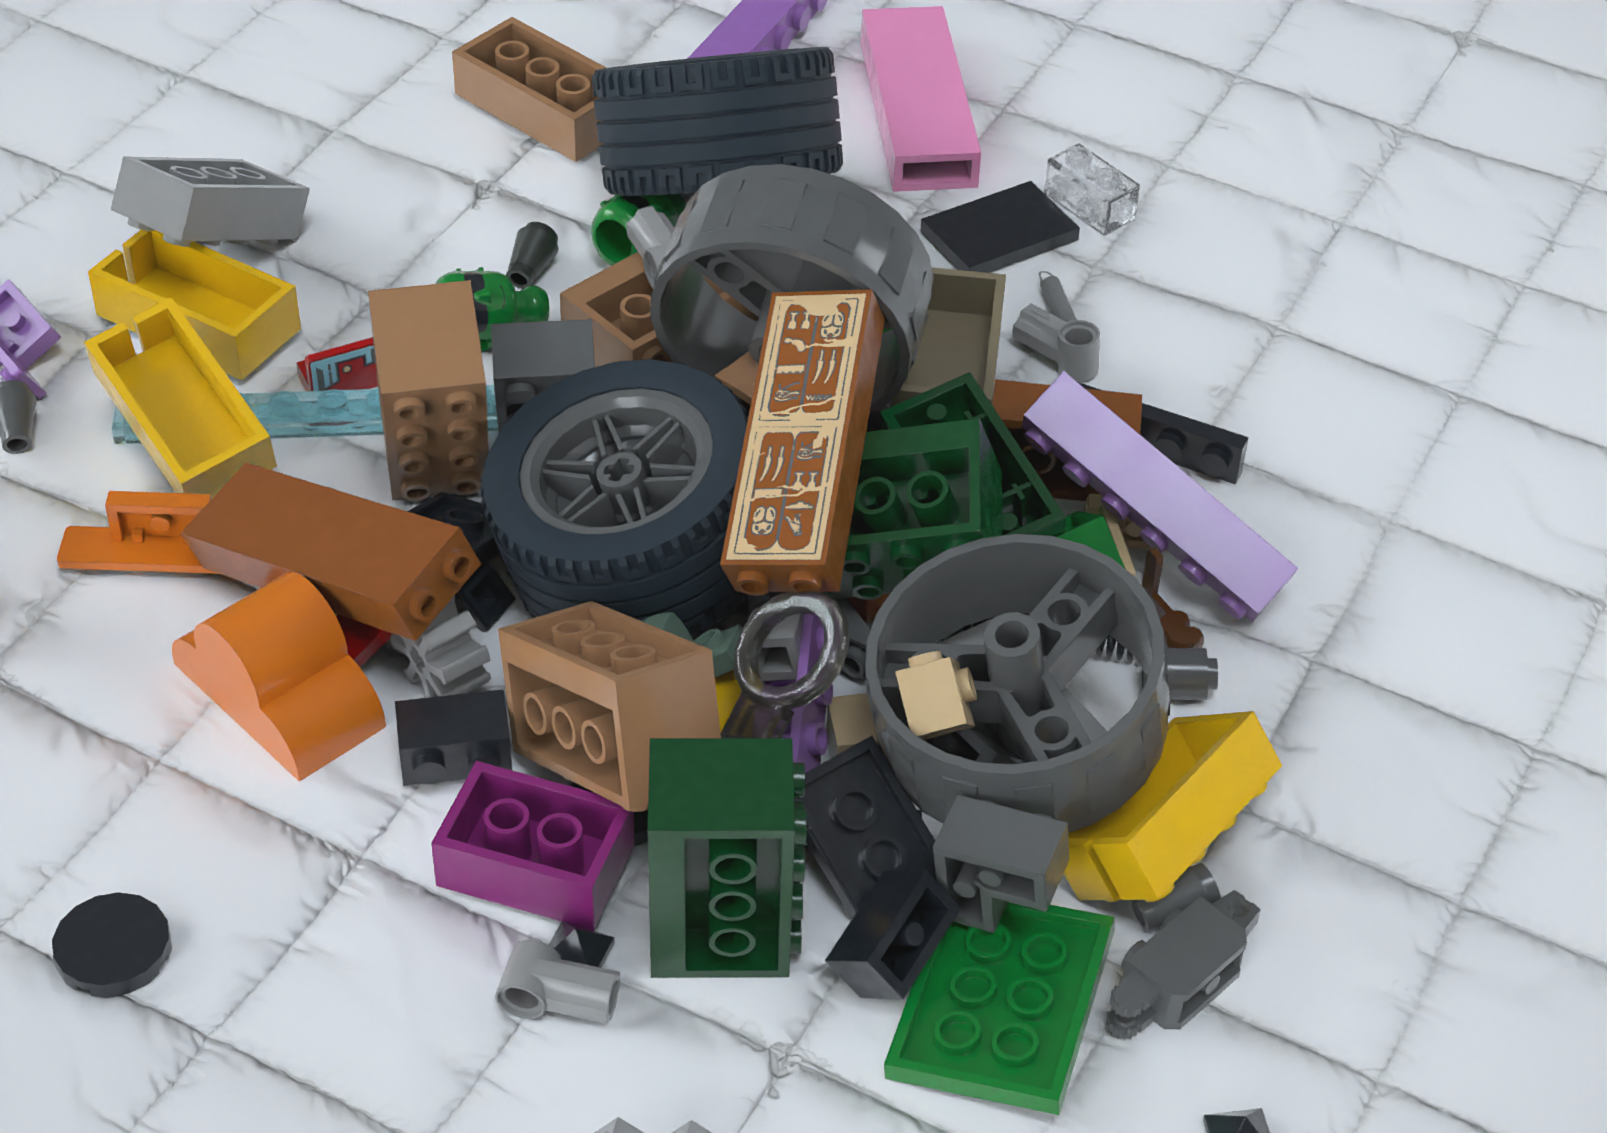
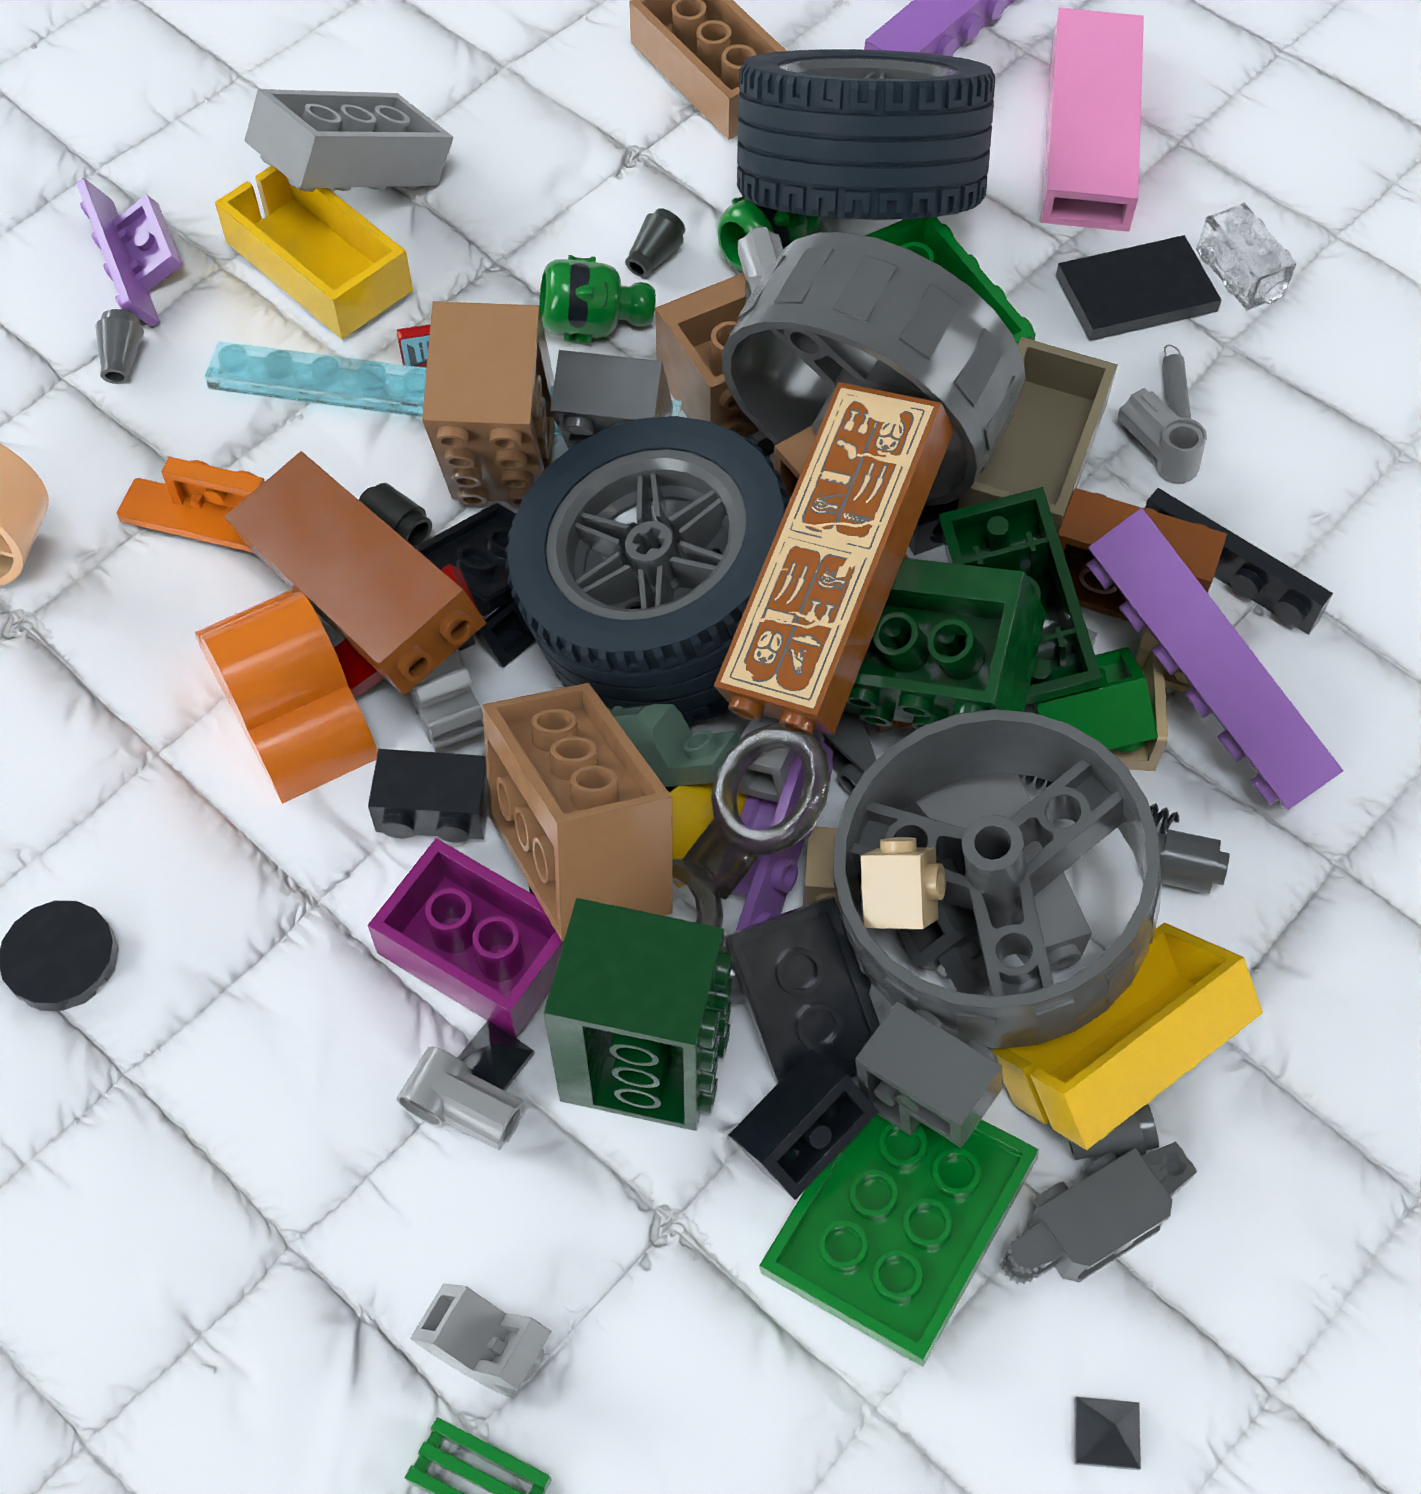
camera: 15 degrees right, 15 degrees up
(179, 401) = (262, 368): yellow piece -> none
(1174, 623) = (1197, 796): reddish brown piece -> none

